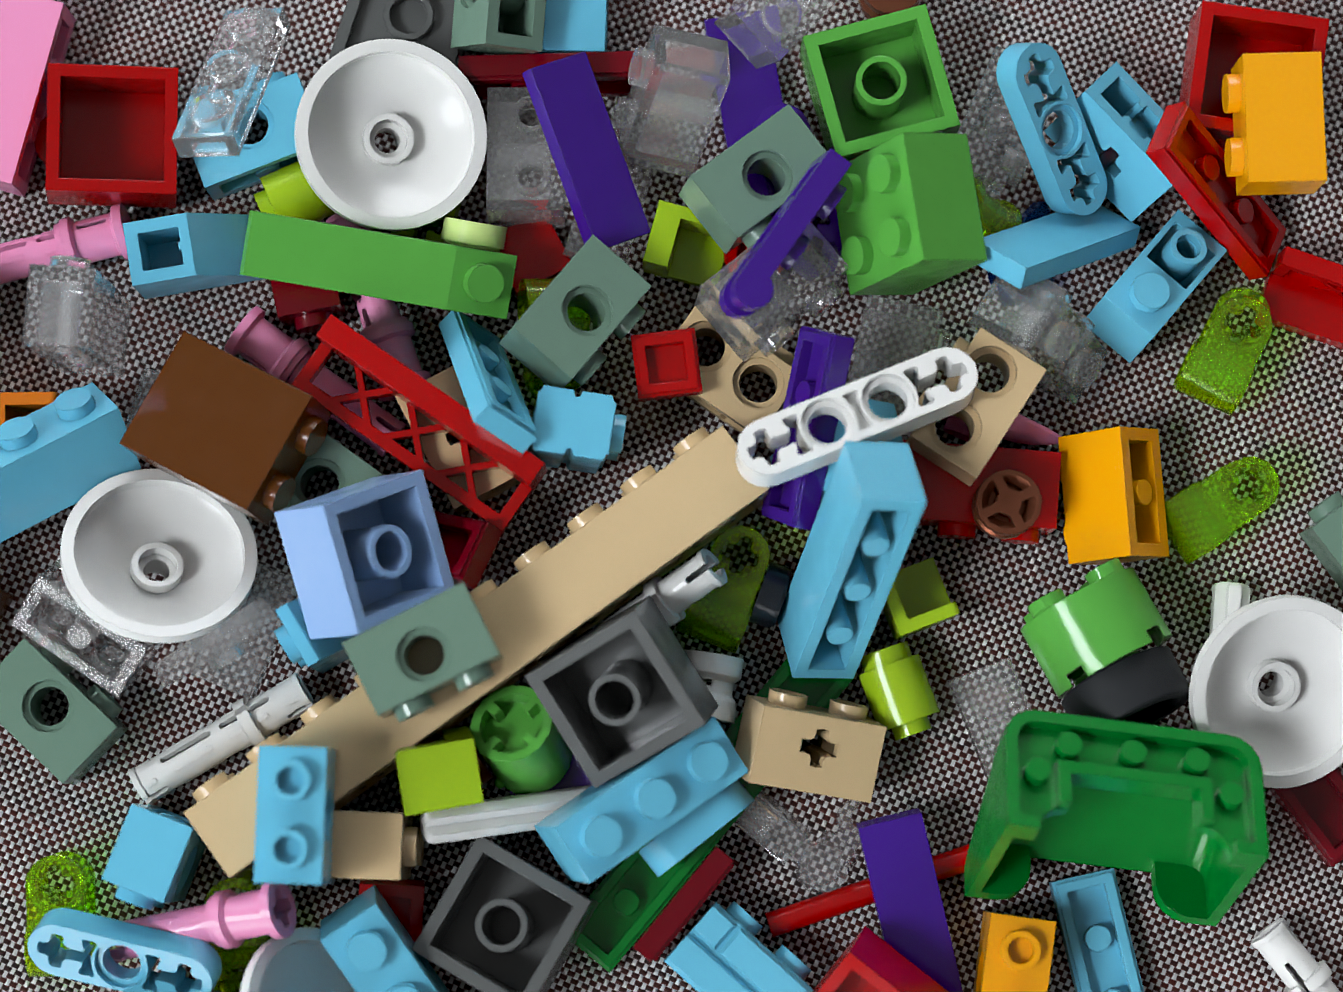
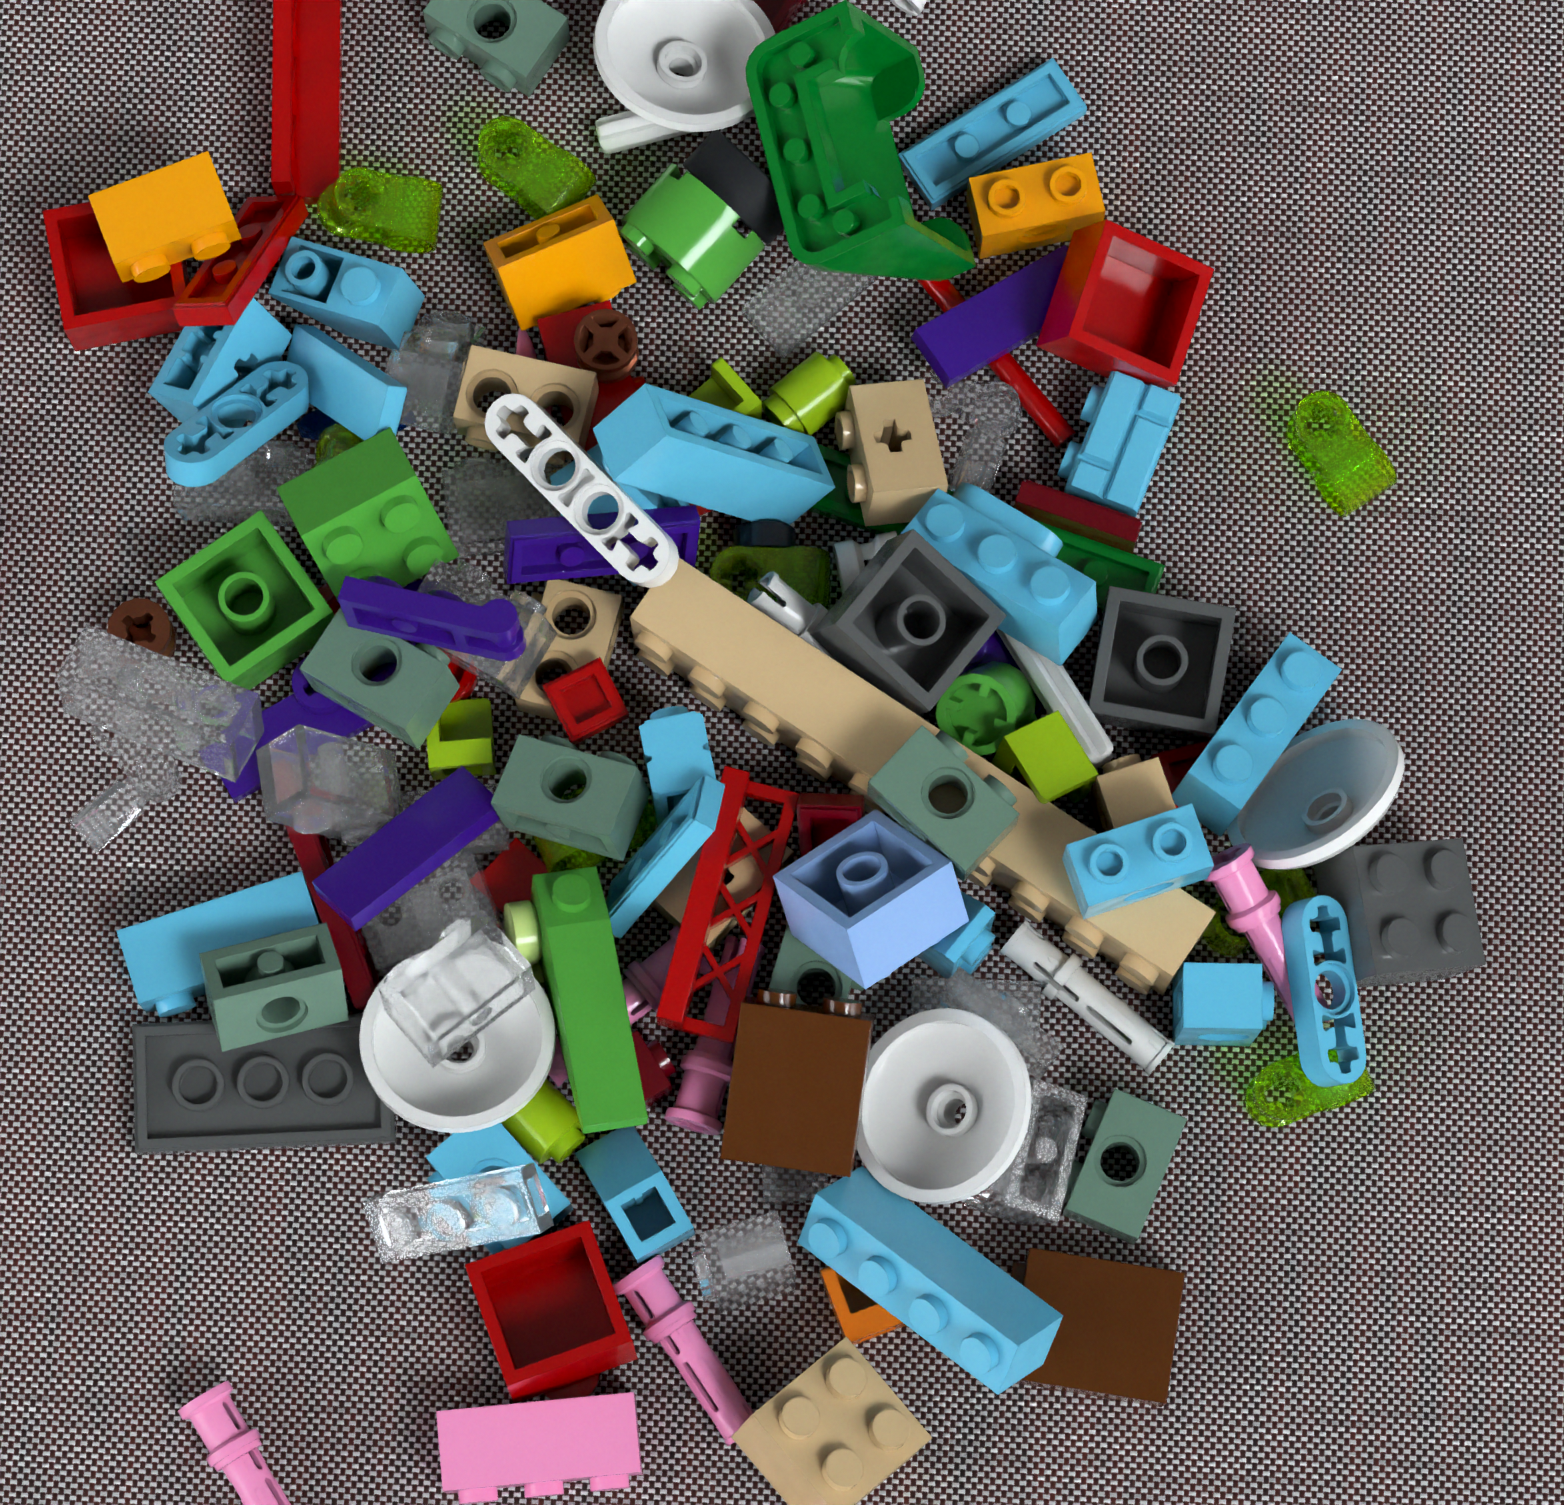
camera: 110 degrees left, 5 degrees down
(432, 143) = (456, 987): none -> clear brick

